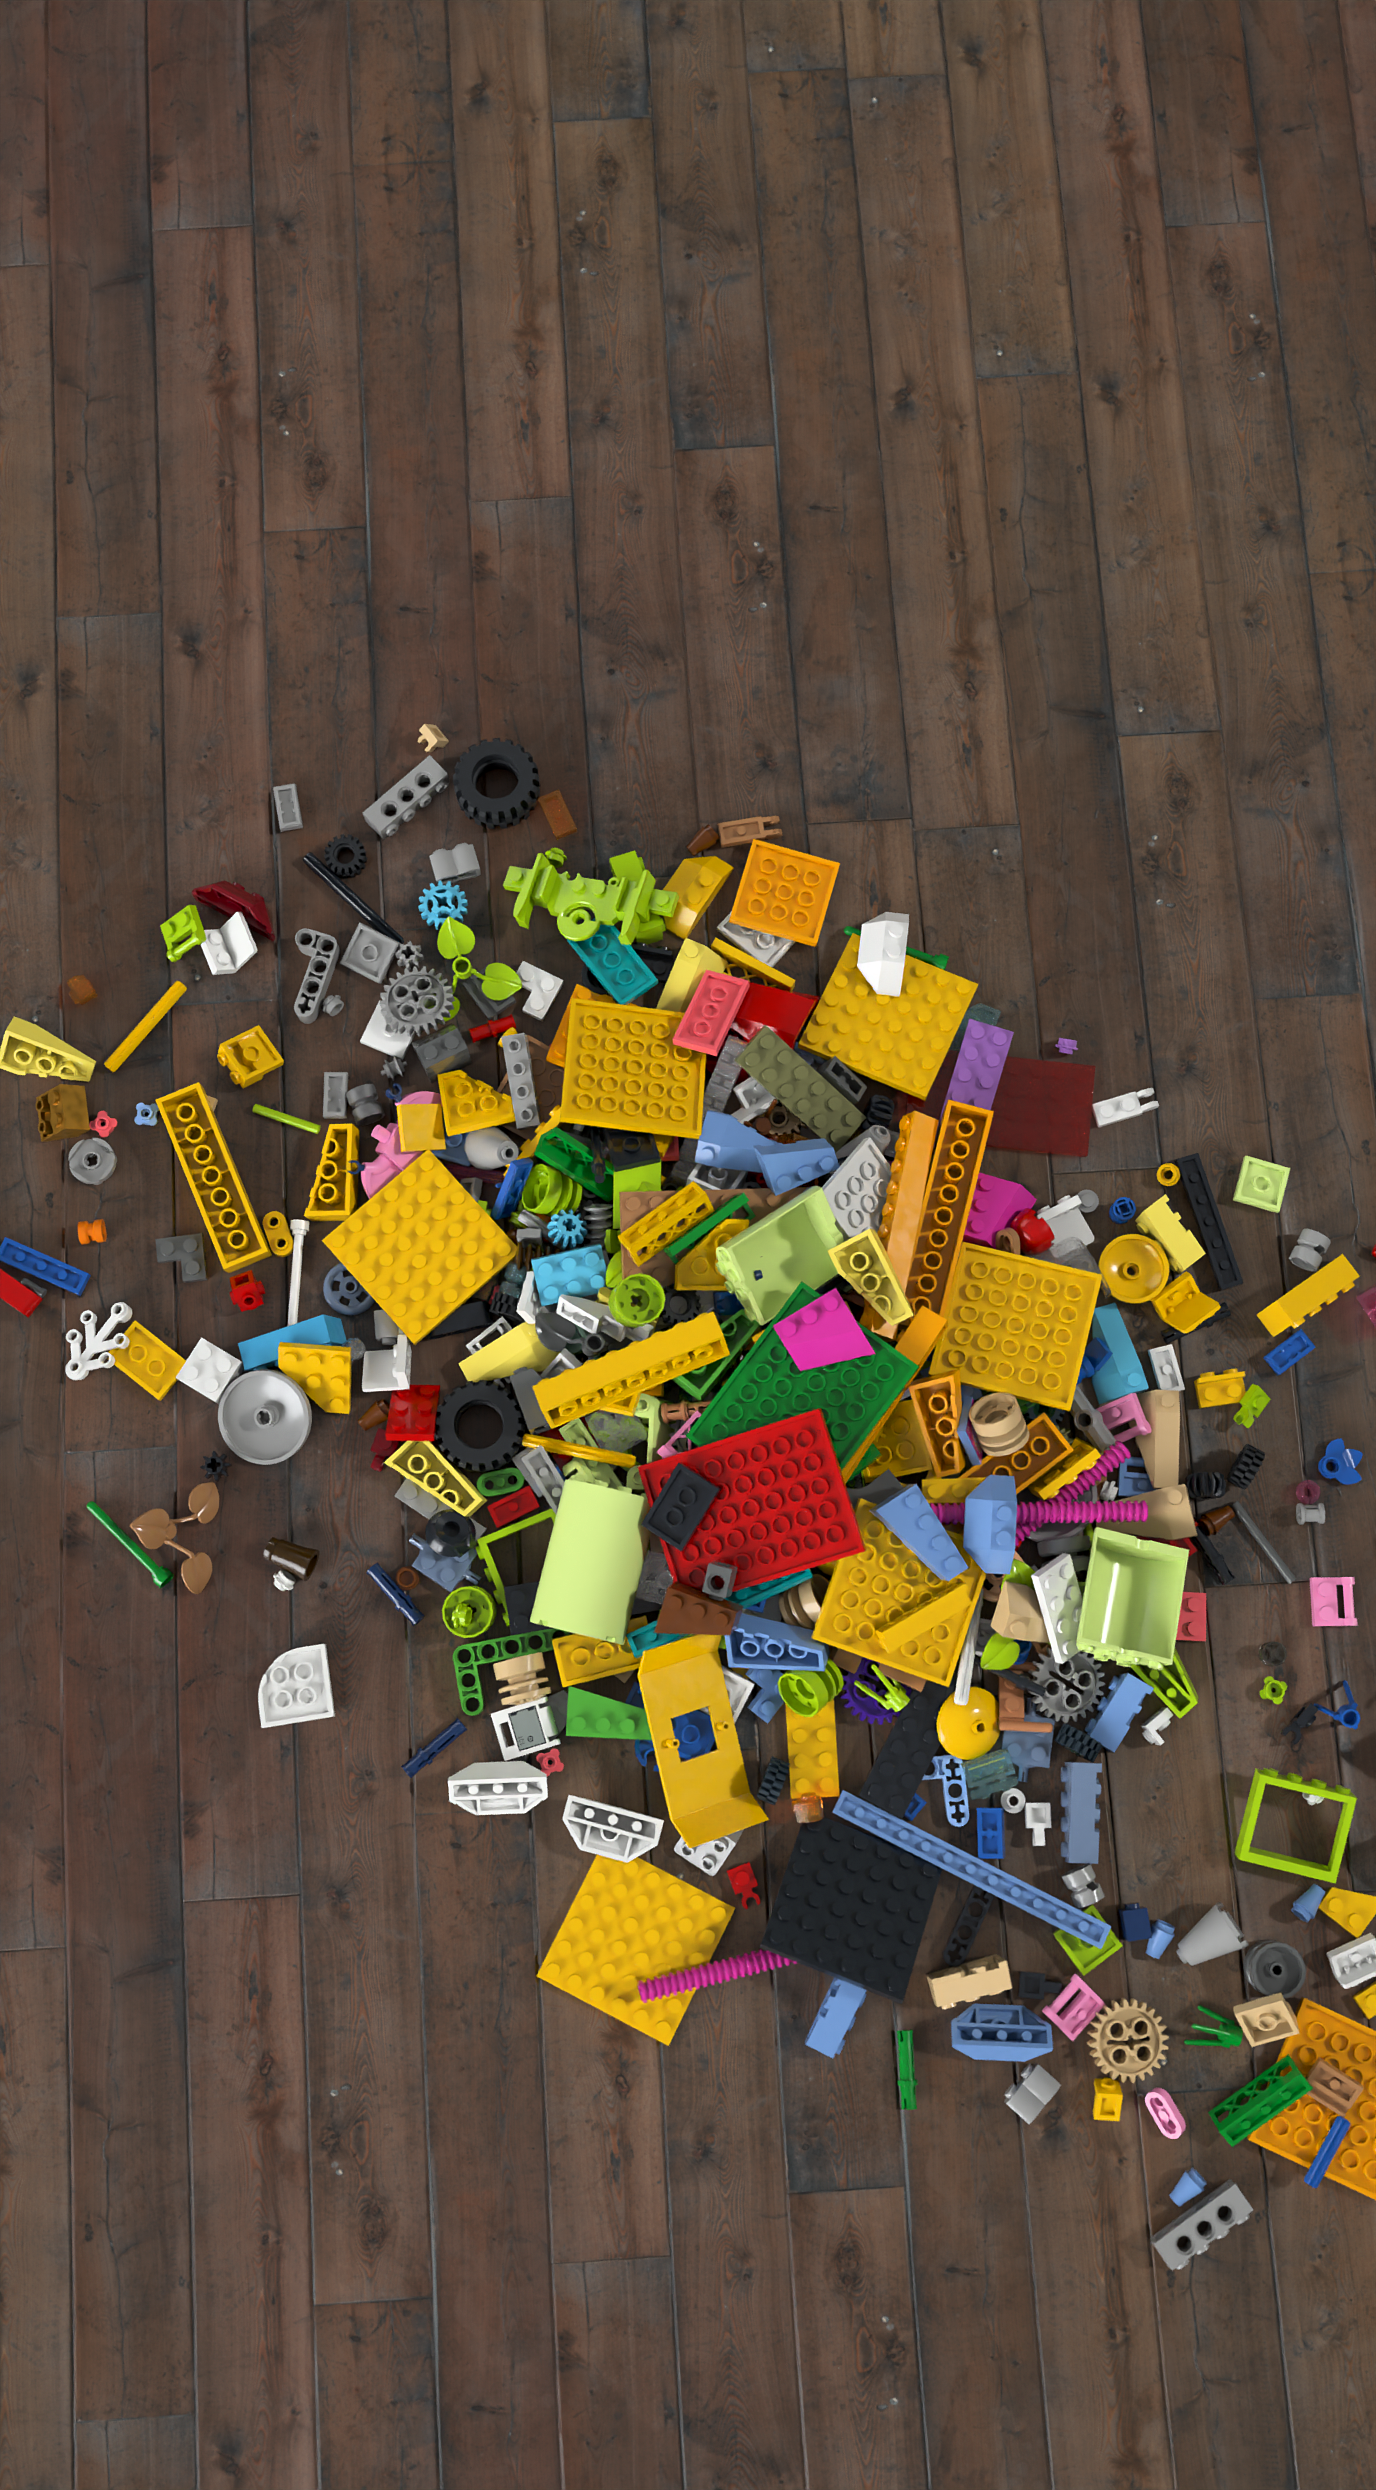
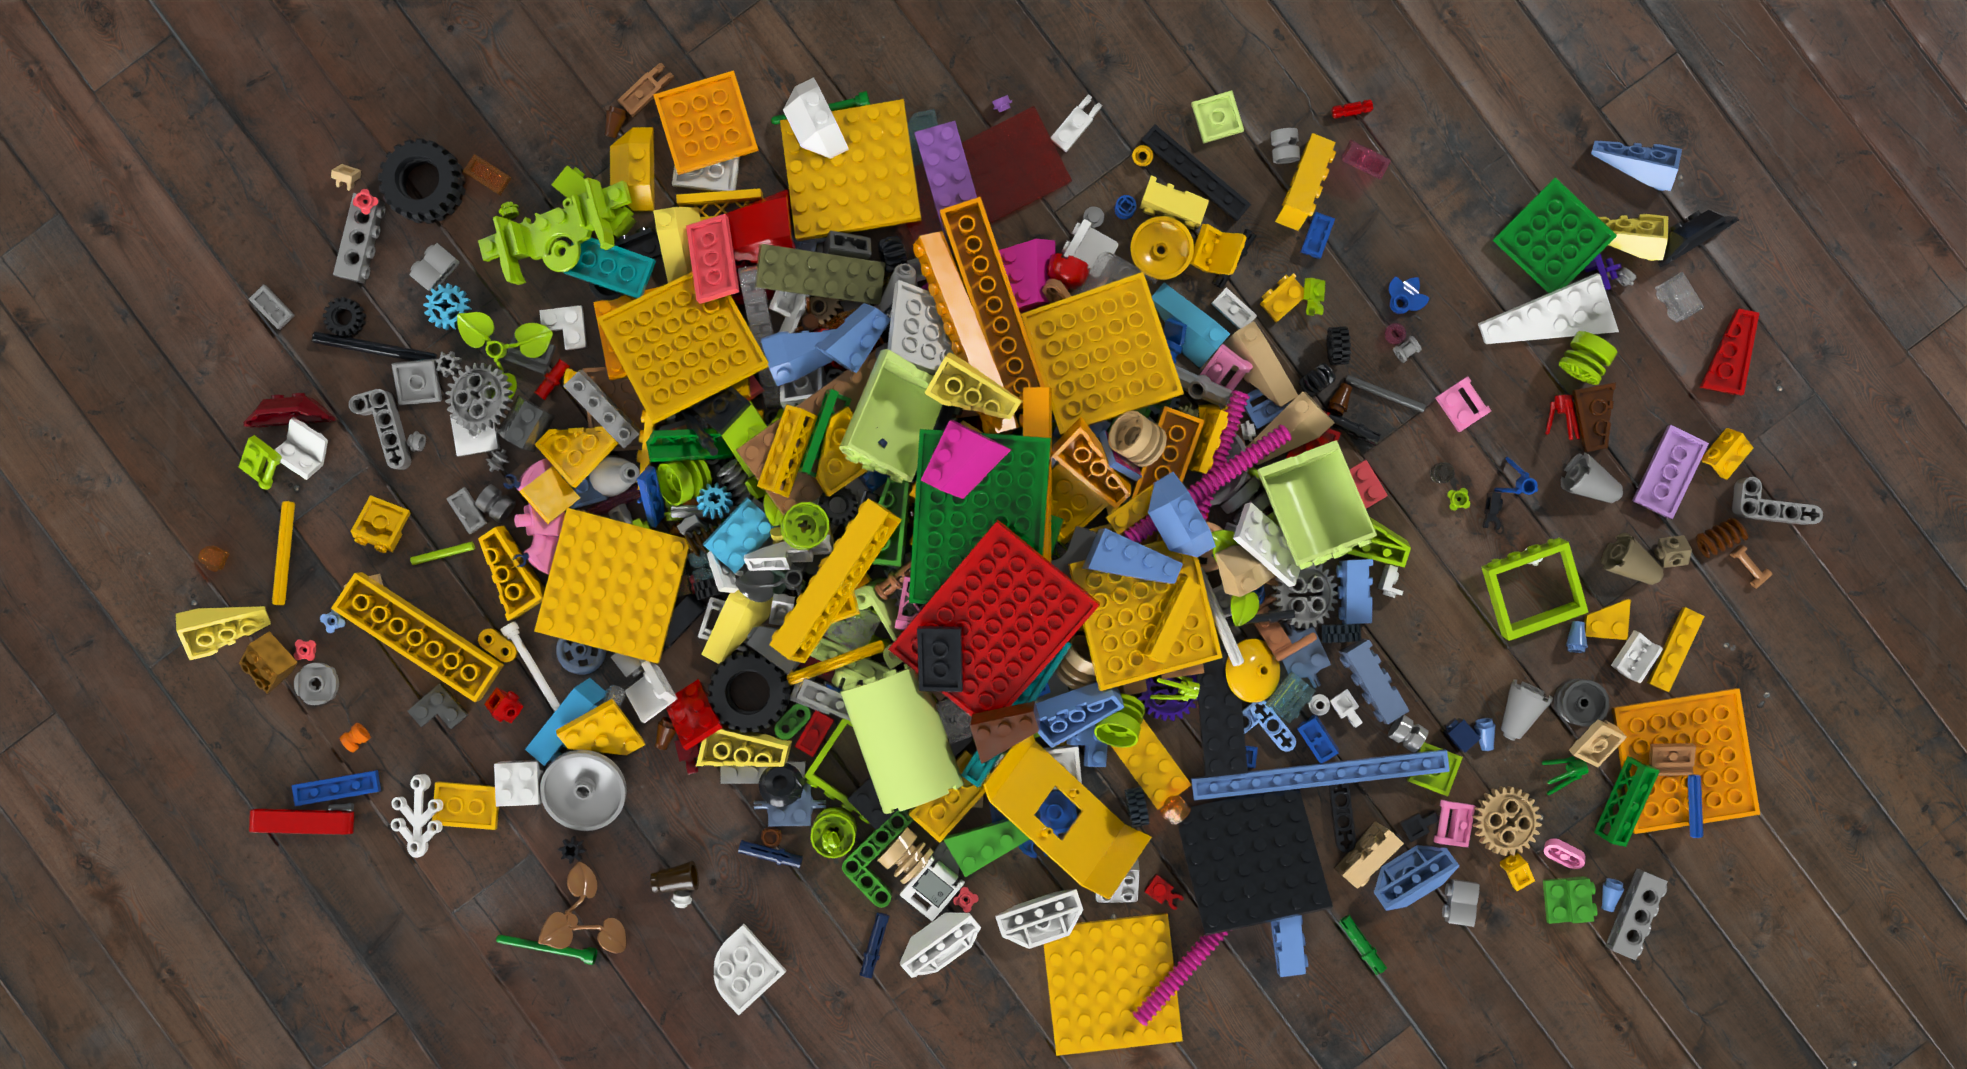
camera: 30 degrees left, 10 degrees up
(432, 763) = (359, 199): none -> coral plate
(727, 1572) = (1004, 685): dark grey brick -> none
(1141, 2164) = (1569, 900): none -> bright green plate

